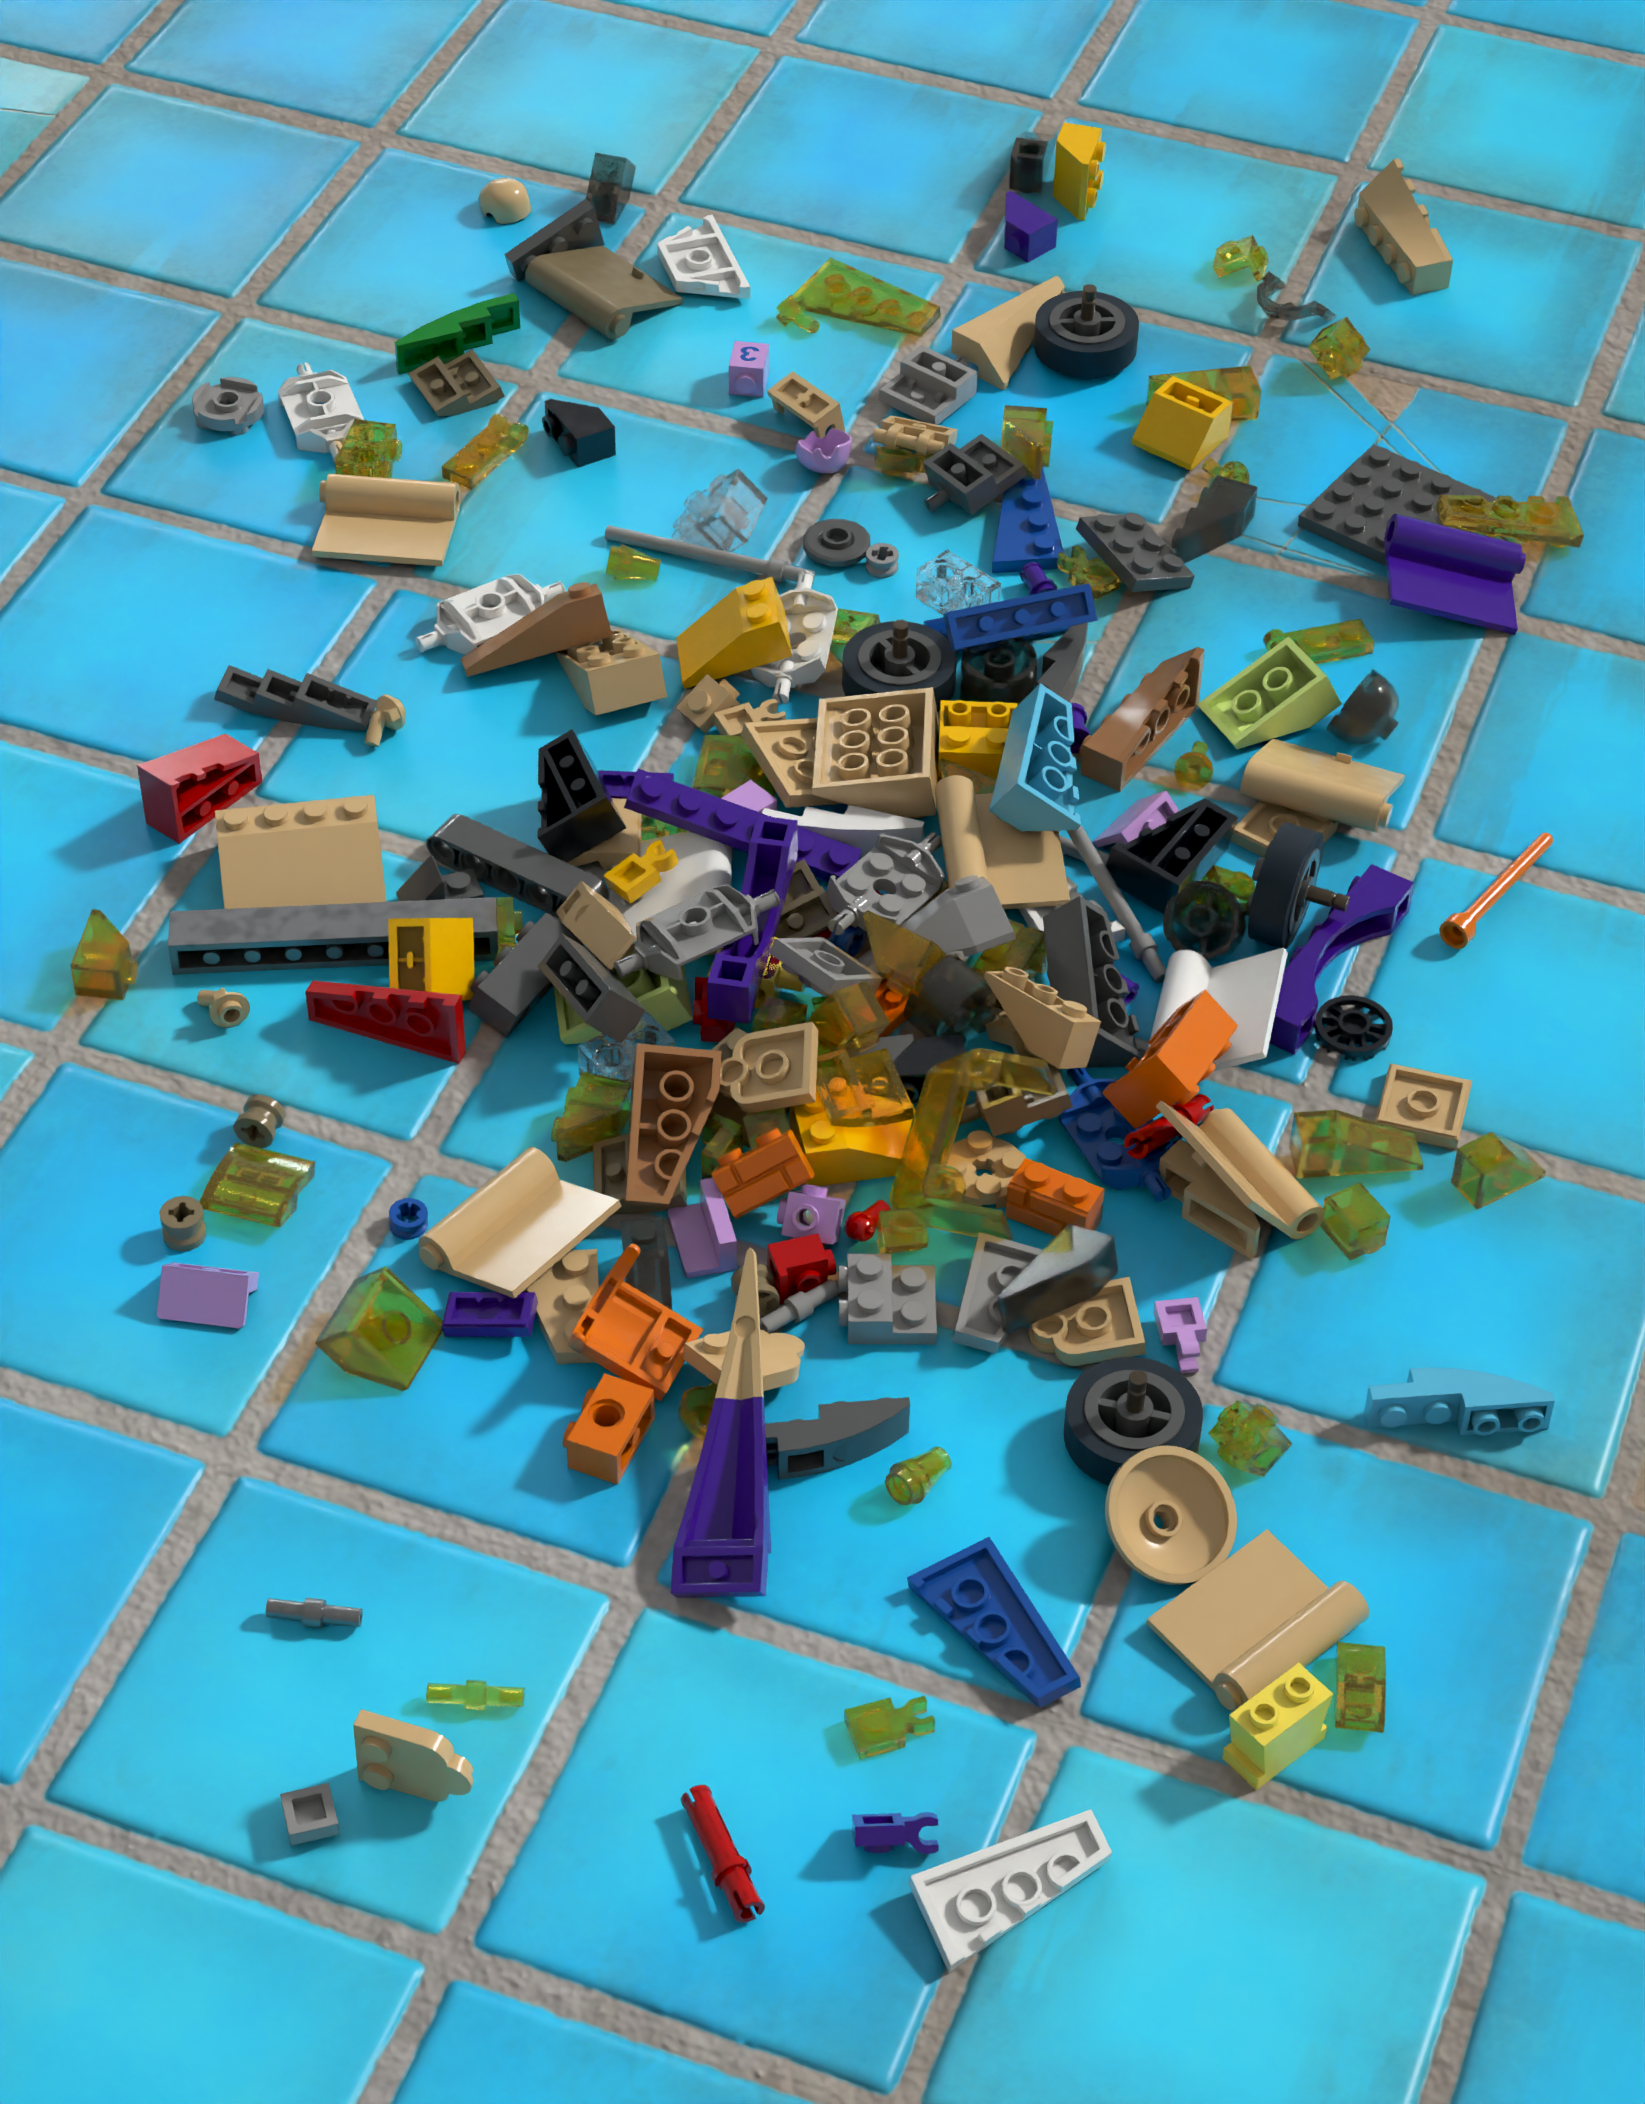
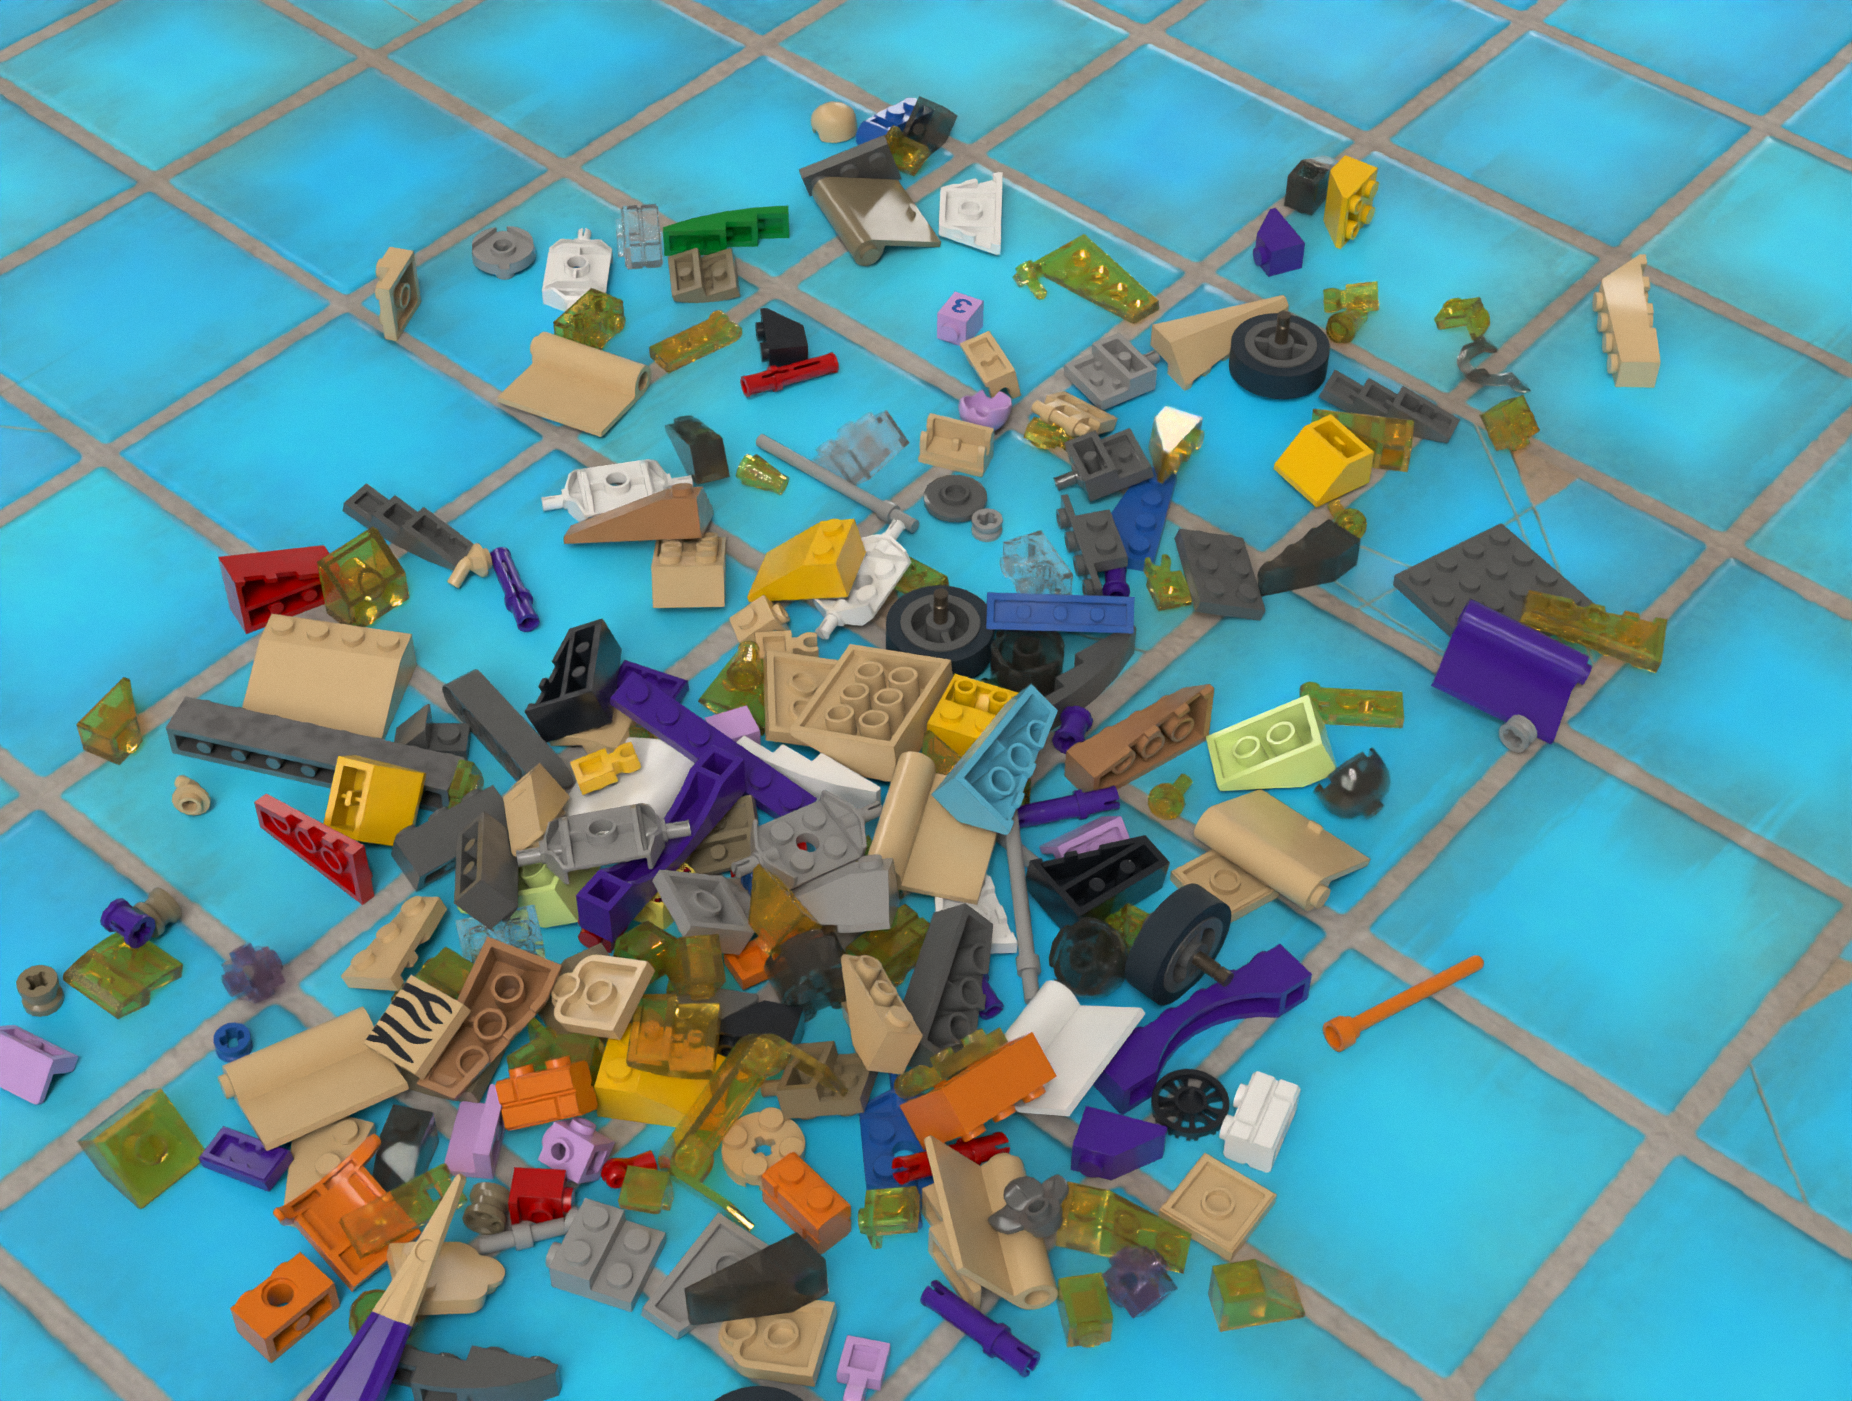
camera: 20 degrees right, 0 degrees up
(145, 466) = (397, 290): none -> tan plate
(243, 1135) = (128, 923): none -> dark purple bush
(286, 757) = (362, 580): none -> clear yellow slope
(369, 358) = (639, 236): none -> clear brick
(398, 1147) = (266, 975): none -> clear purple brick
(450, 739) = (523, 613): none -> dark purple pin
(525, 1089) = (395, 946): none -> tan wing
(553, 553) = (698, 449): none -> clear smoke slope
(565, 189) = (884, 120): none -> blue plate
(594, 466) = (777, 377): none -> red pin
(602, 1147) = (417, 1027): none -> tan tile
(609, 214) = (906, 152): none -> clear yellow bracket
(682, 1311) = (396, 1212): none -> clear yellow plate
(730, 745) = (746, 668): none -> clear yellow cone
(813, 490) = (956, 445): none -> tan hinge
(998, 551) = (1094, 543): none -> dark grey bracket
(1113, 794) = (1077, 805): none -> dark purple pin
(1127, 262) = (1356, 294): none -> clear yellow plate
(1130, 1042) = (948, 1063): none -> clear yellow plate
(1133, 289) = (1345, 324): none -> clear yellow cone
(1138, 1188) = (889, 1213): none -> clear yellow bracket
(1200, 355) = (1376, 400): none -> dark grey slope
(1256, 1260) = (993, 1337): none -> dark purple pin
(1273, 1142) = (1031, 1206): none -> dark grey plate
(1307, 1076) = (1115, 1144): none -> dark purple slope
(1411, 1179) = (1138, 1280): none -> clear purple brick
(1428, 1022) = (1260, 1121): none -> white brick
(1480, 637) = (1517, 733): none -> light grey bush

